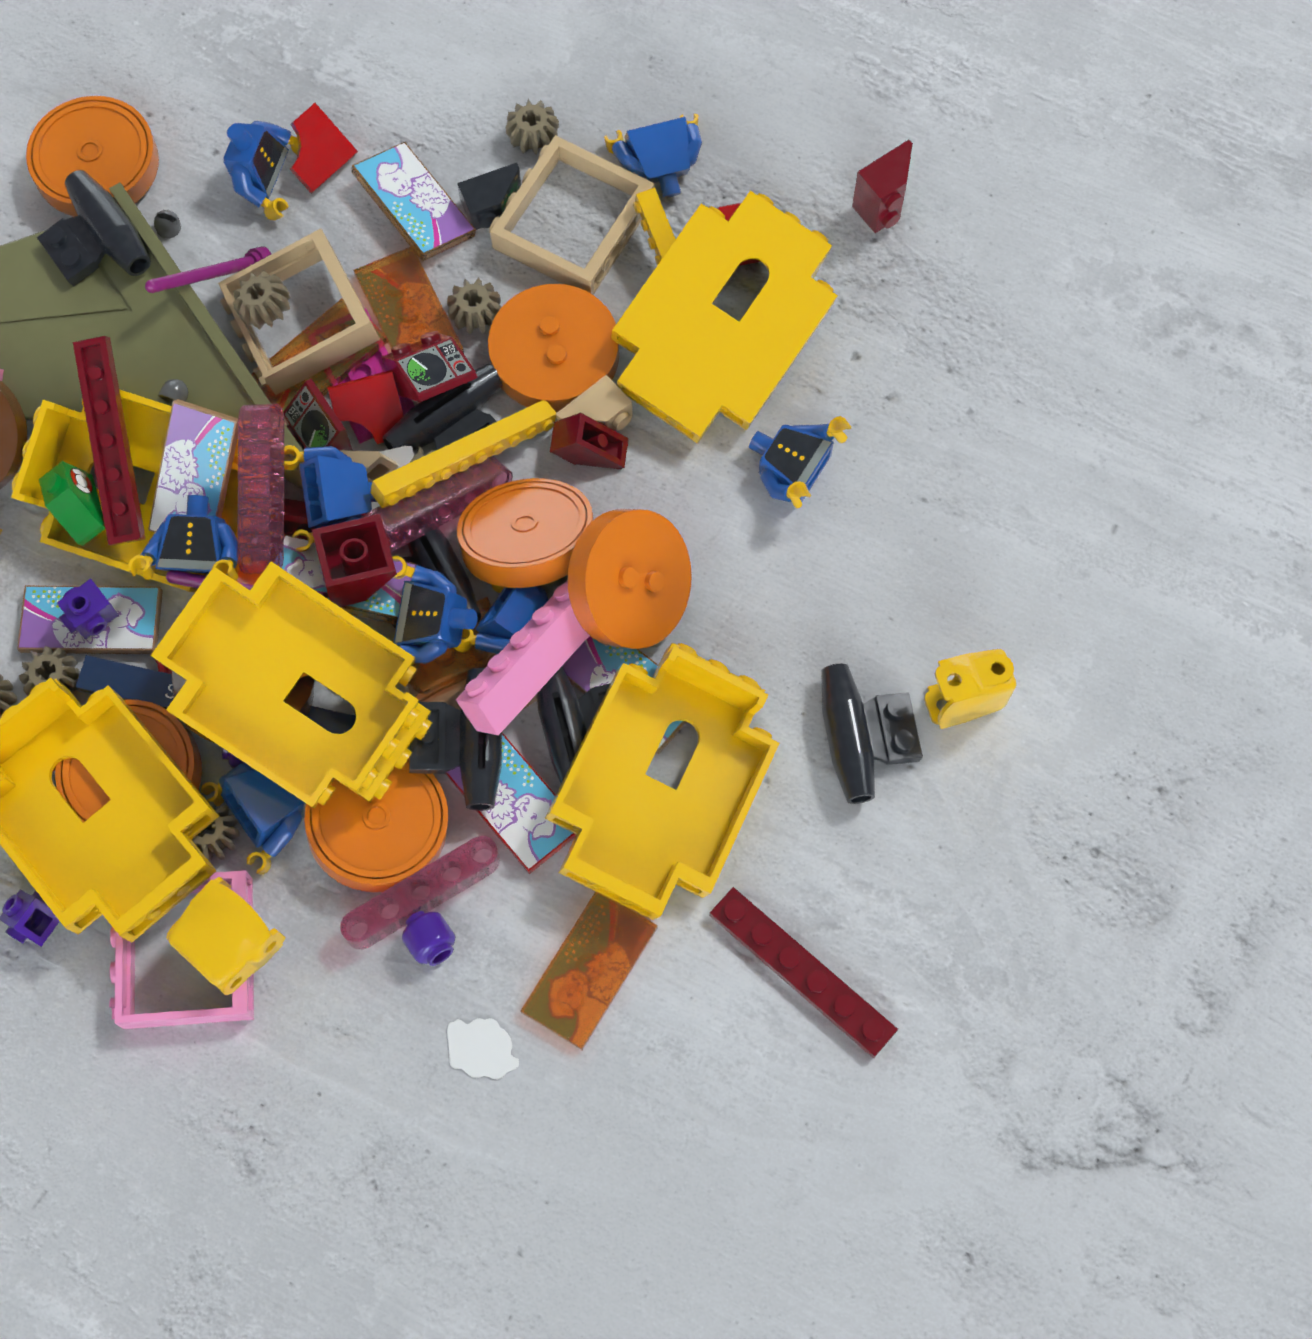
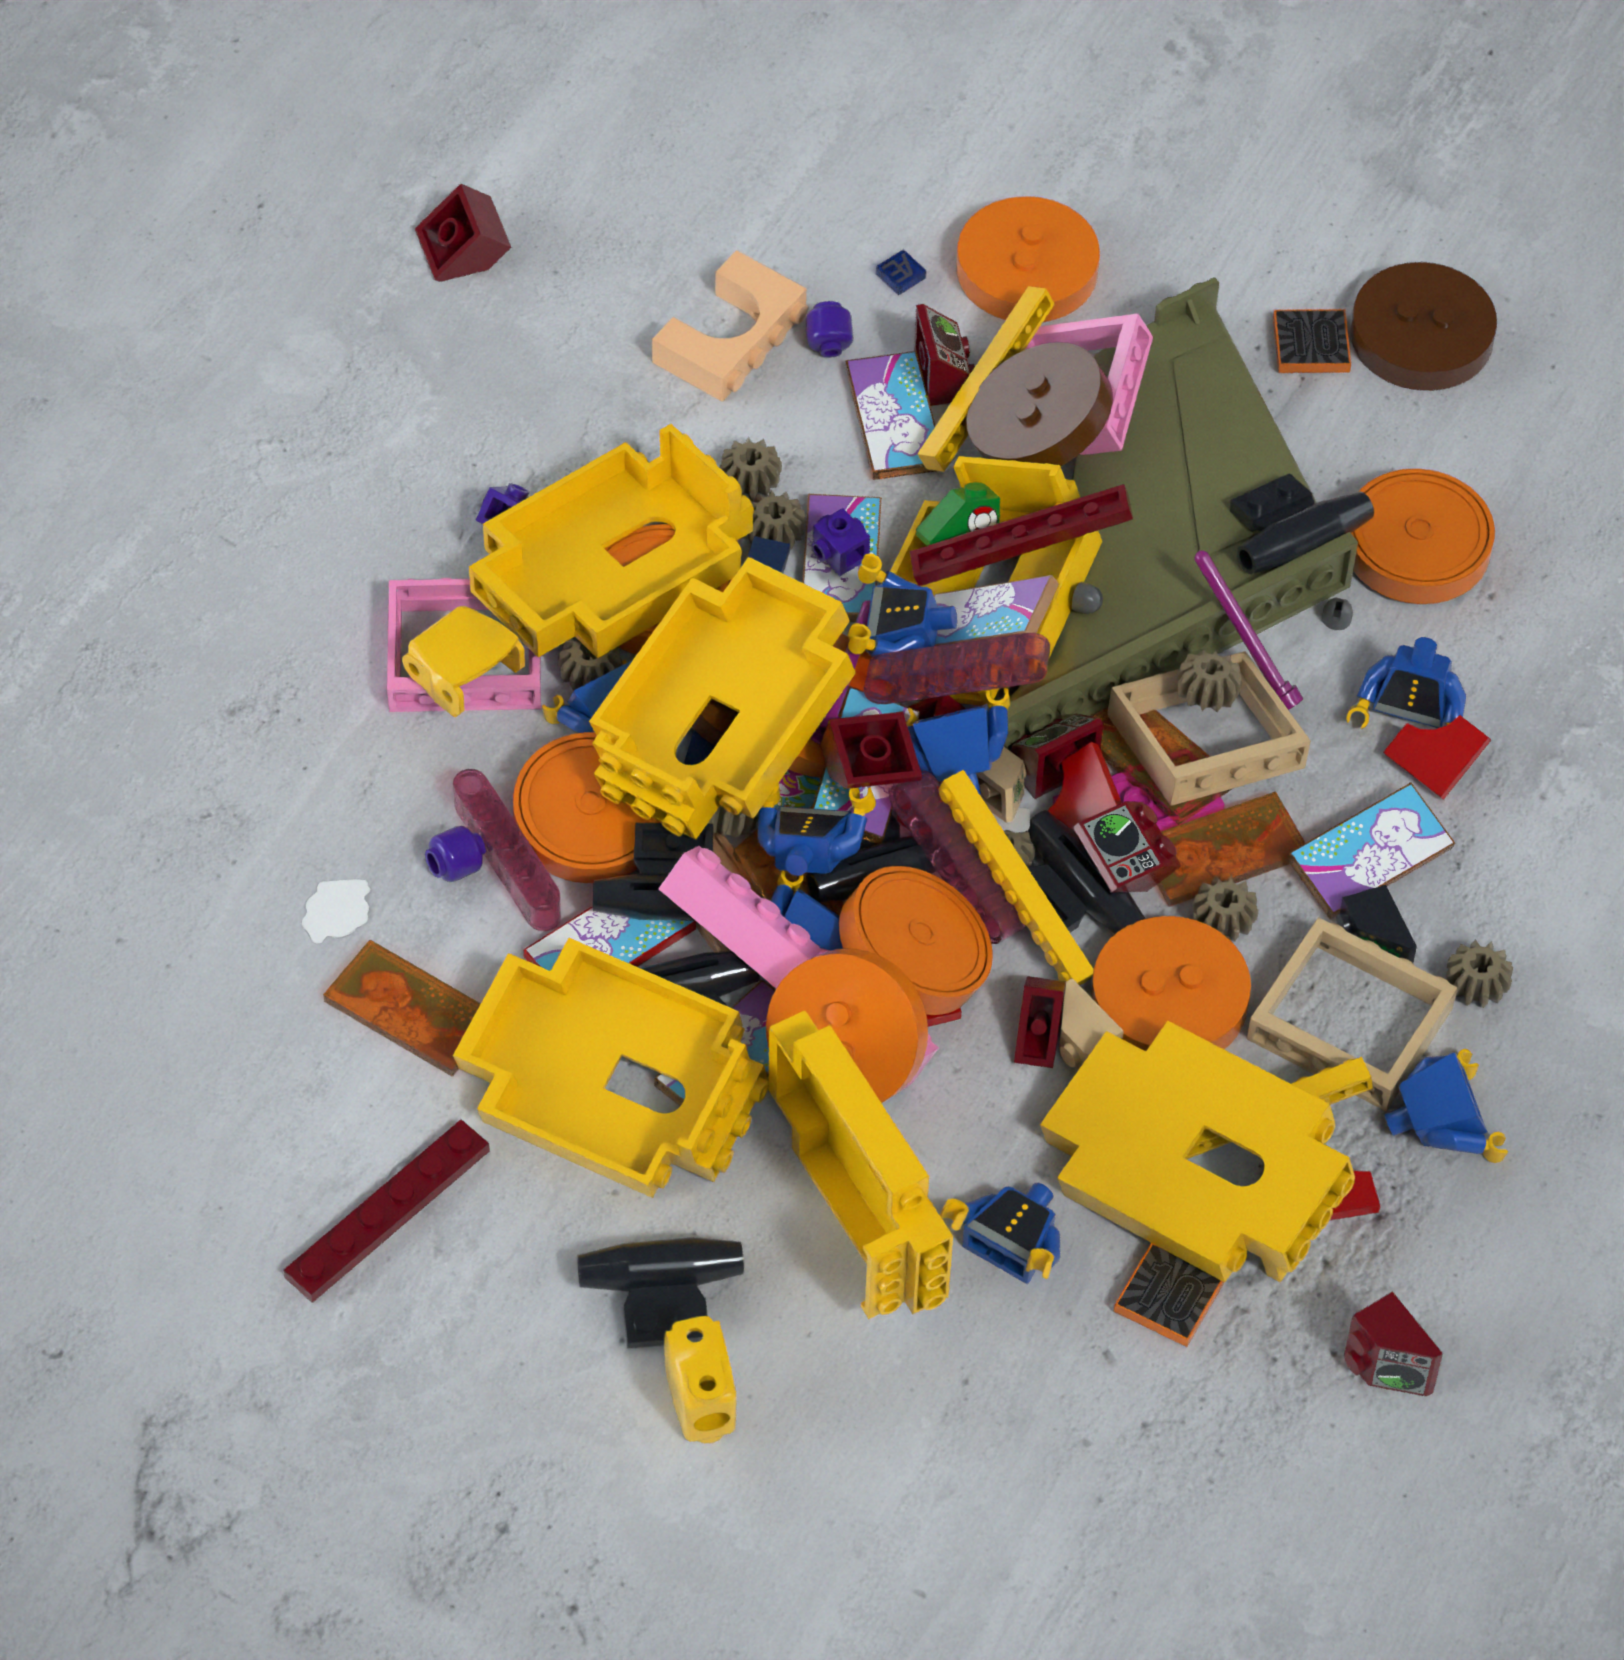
camera: 90 degrees right, 15 degrees down
(784, 551) = (860, 1167): none -> yellow panel
(837, 352) = (1168, 1295): none -> tile

